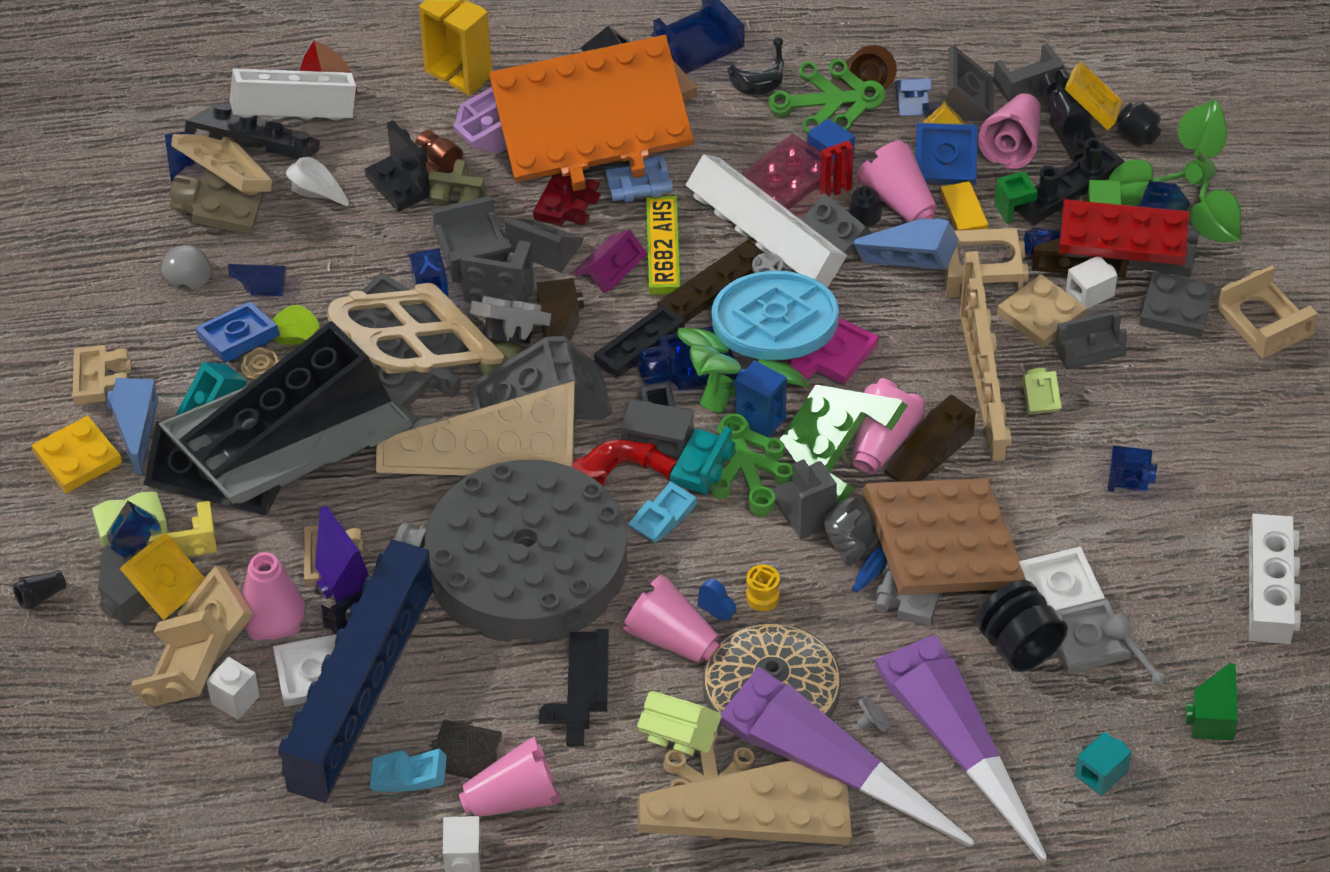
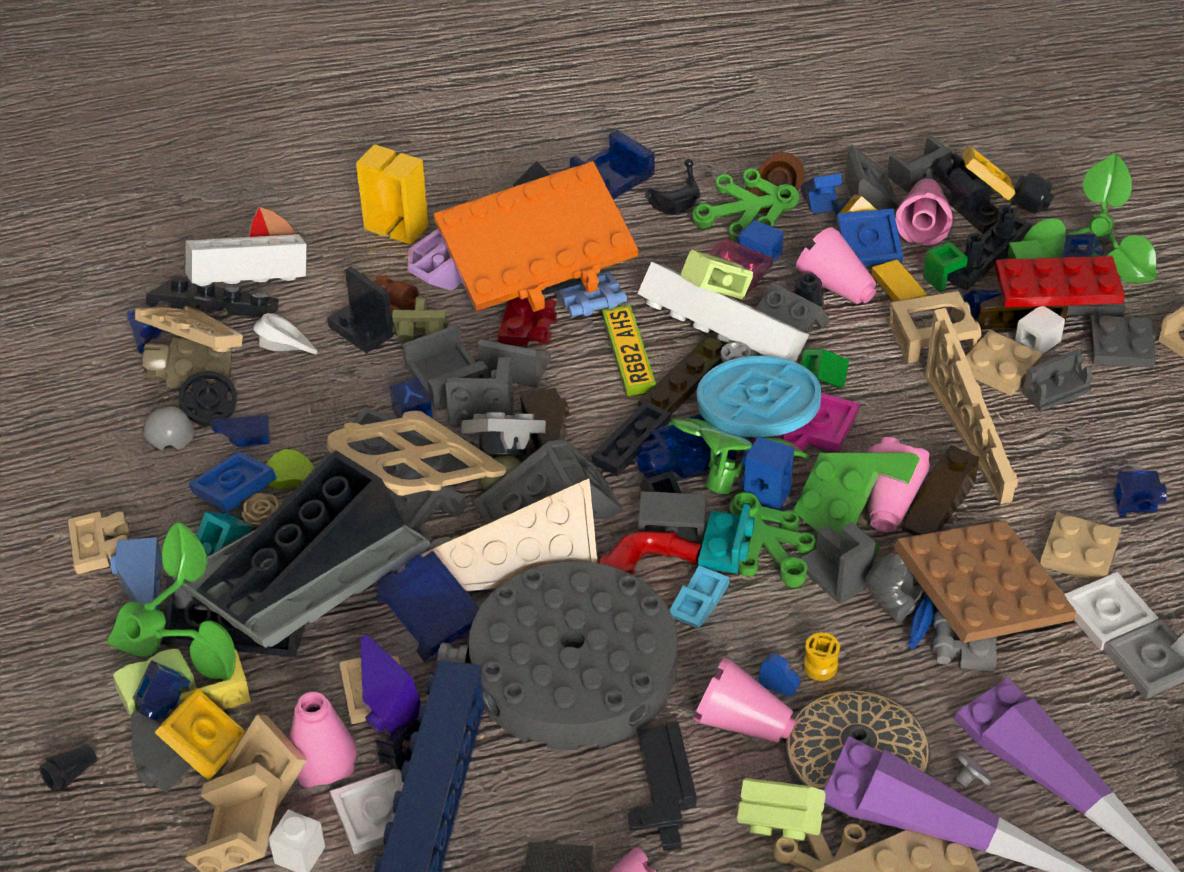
camera: 10 degrees left, 5 degrees down
(76, 454) = (82, 623): yellow plate -> none
(124, 467) = (141, 626): none -> bright green plant
(229, 240) = (207, 398): none -> black wheel
(398, 481) = (428, 603): none -> clear blue panel
(612, 260) = (585, 368): magenta panel -> none
(765, 178) = (716, 274): none -> yellowish green brick
(841, 167) = (776, 261): red tile -> none
(855, 292) = (826, 366): none -> green panel
(912, 244) = (870, 316): medium blue slope -> none
(1021, 625) = (1094, 656): black wheel -> none
(1041, 391) = (1028, 433): yellowish green bracket -> none
(1054, 516) = (1080, 547): none -> tan plate

